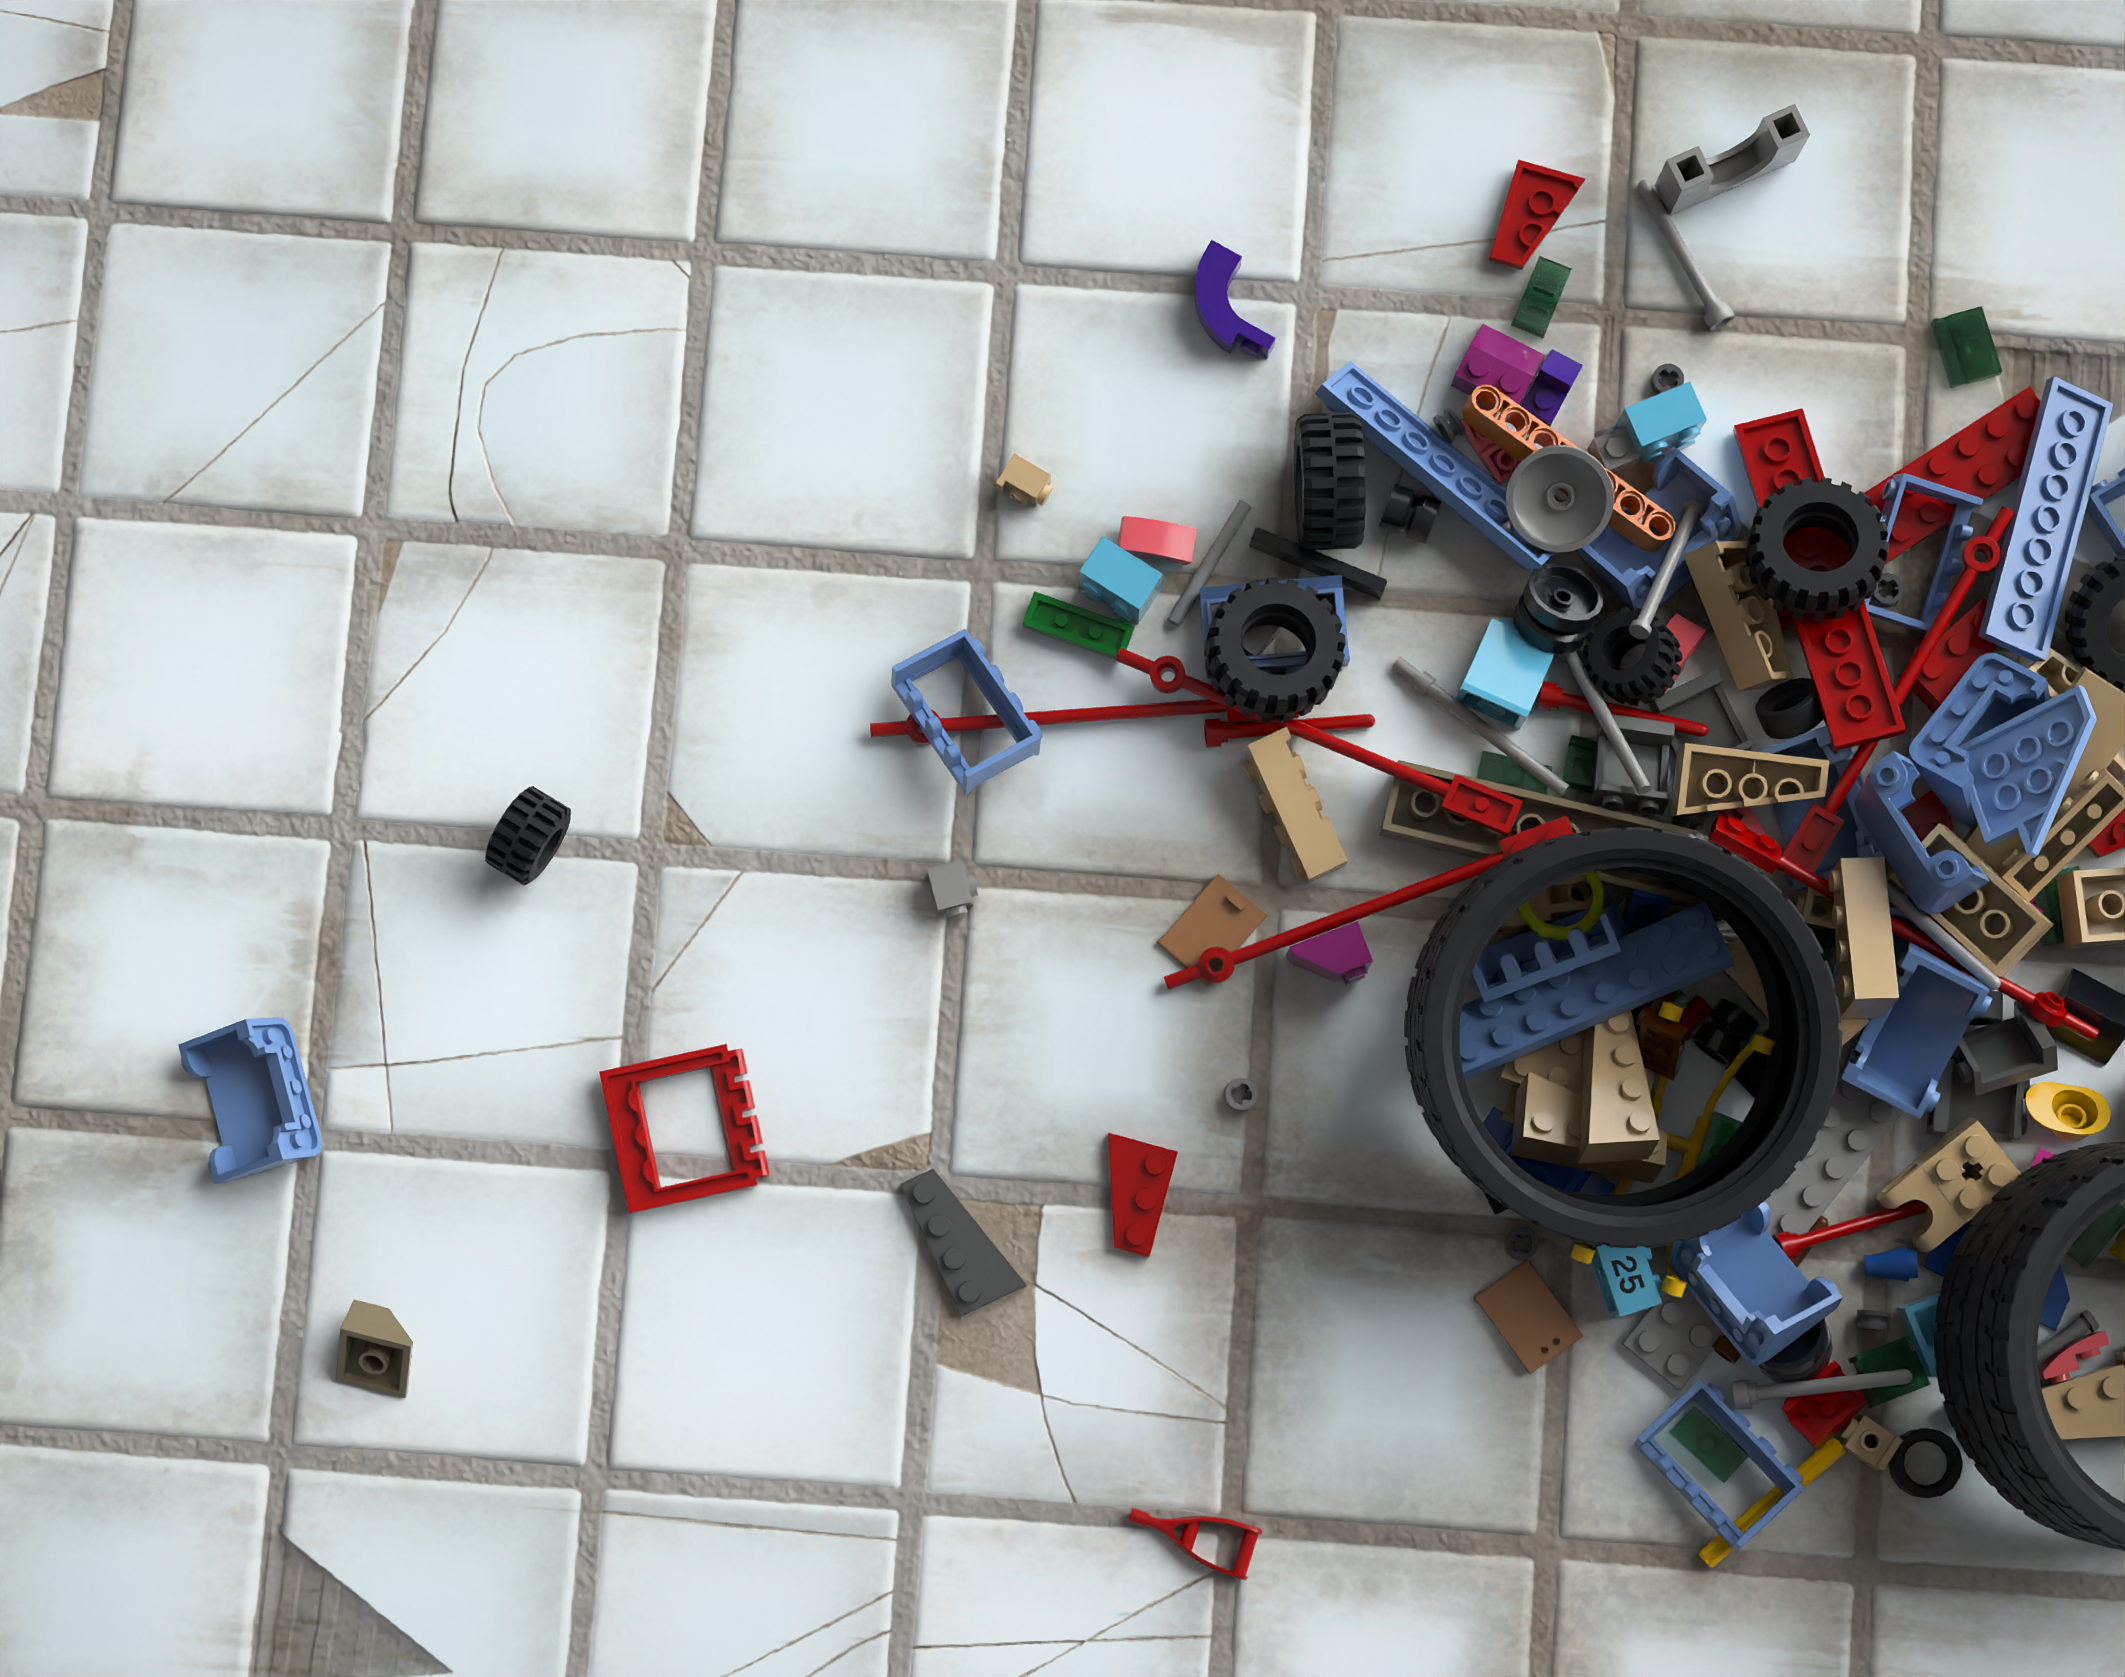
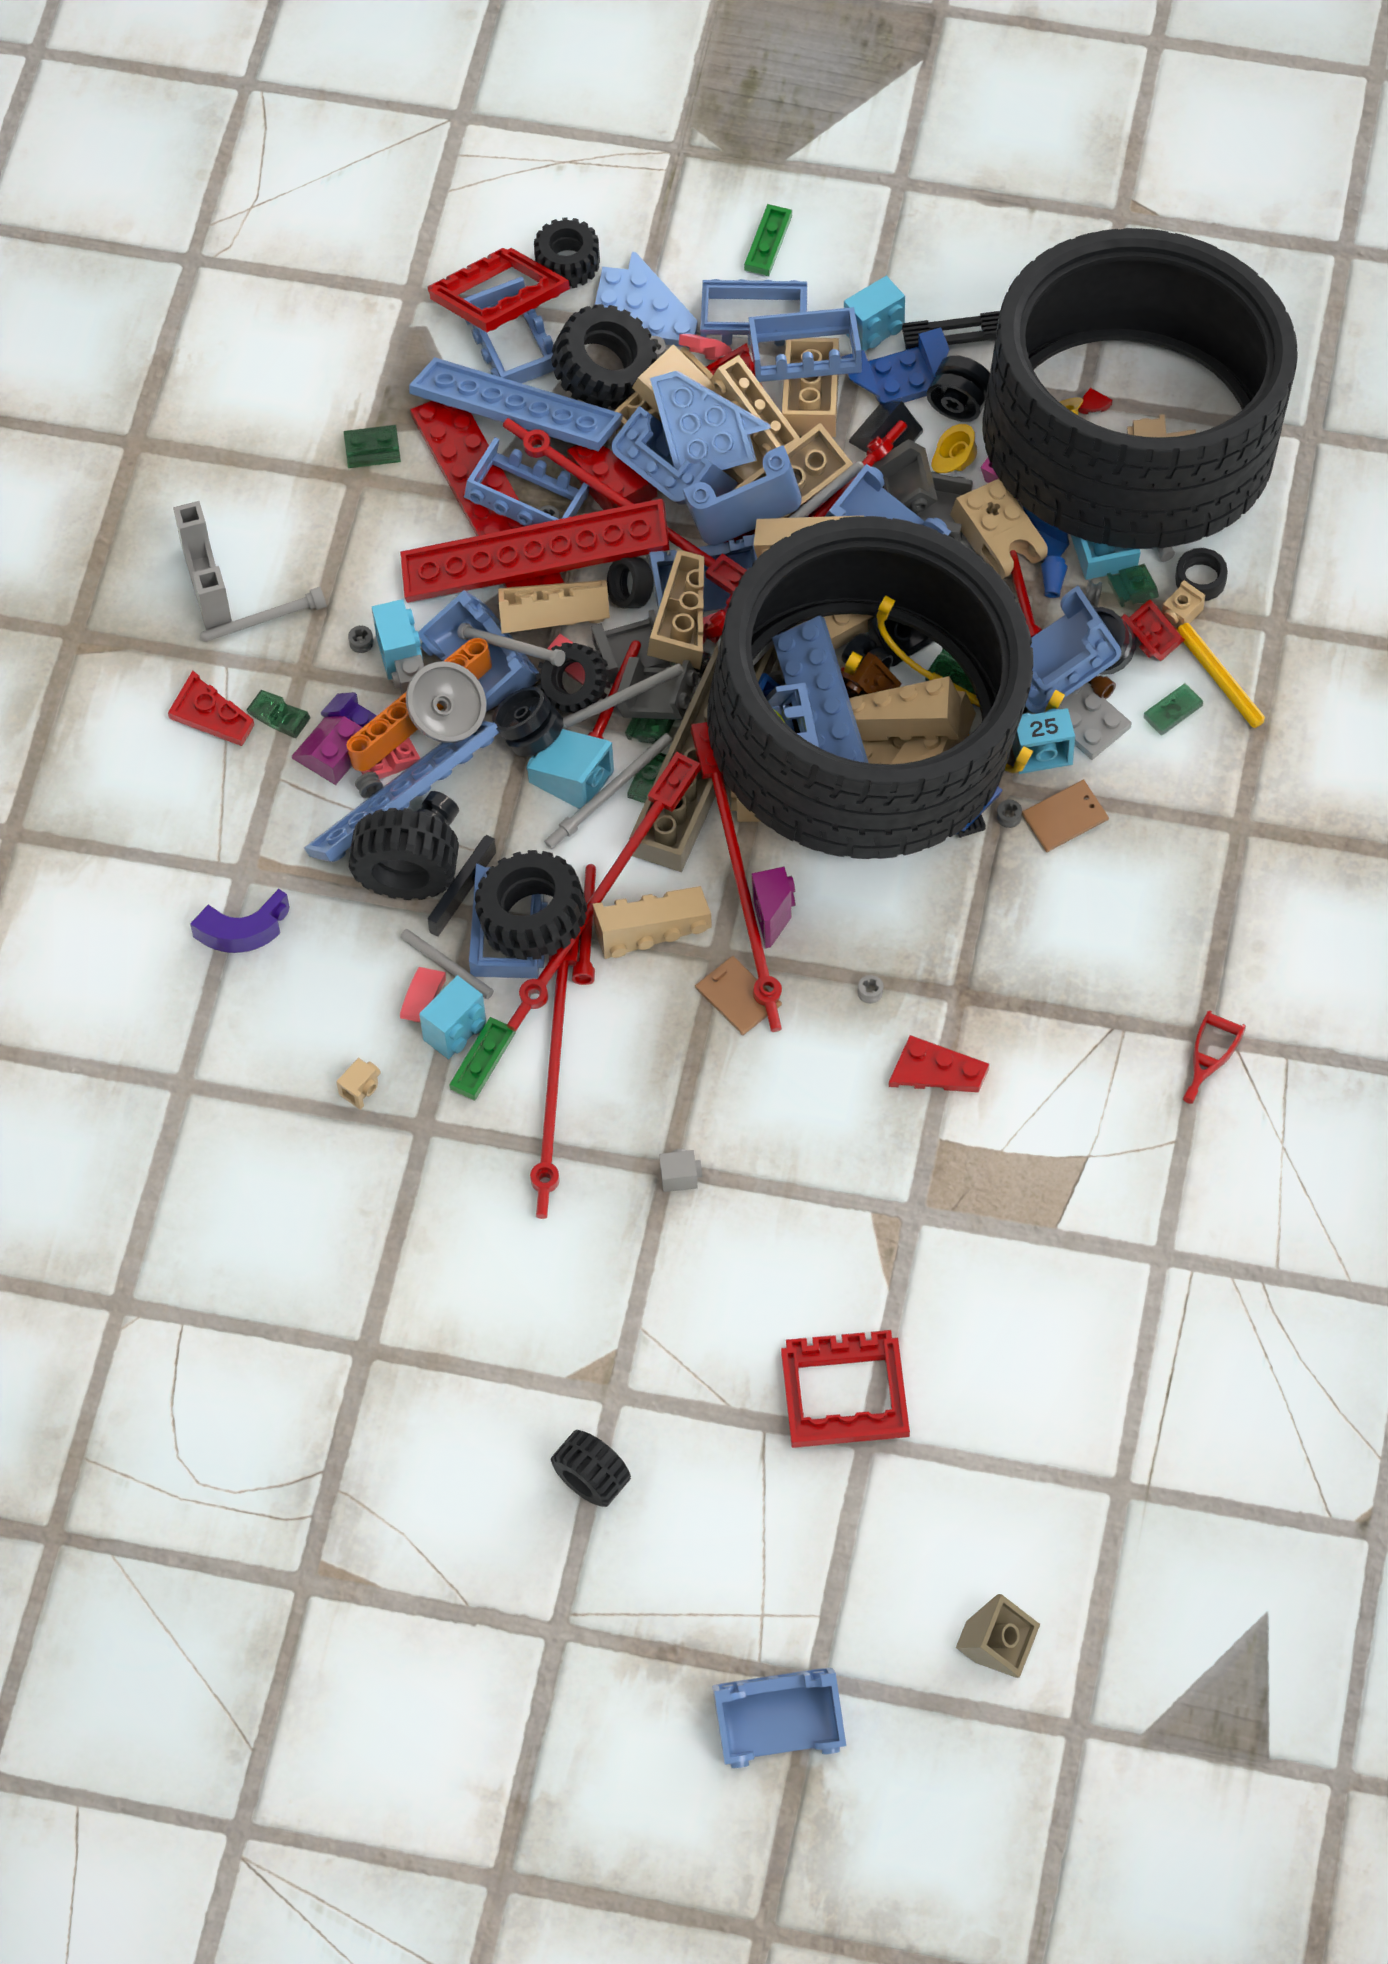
camera: 80 degrees left, 20 degrees down
(964, 1253) = (970, 1196): dark grey wing -> none
(991, 683) = (529, 1116): medium blue window -> none
(1736, 1427) = (1184, 672): medium blue window -> none
(1749, 1394) = (1139, 674): light grey piece -> none
(1823, 507) = (503, 512): black tyre -> none

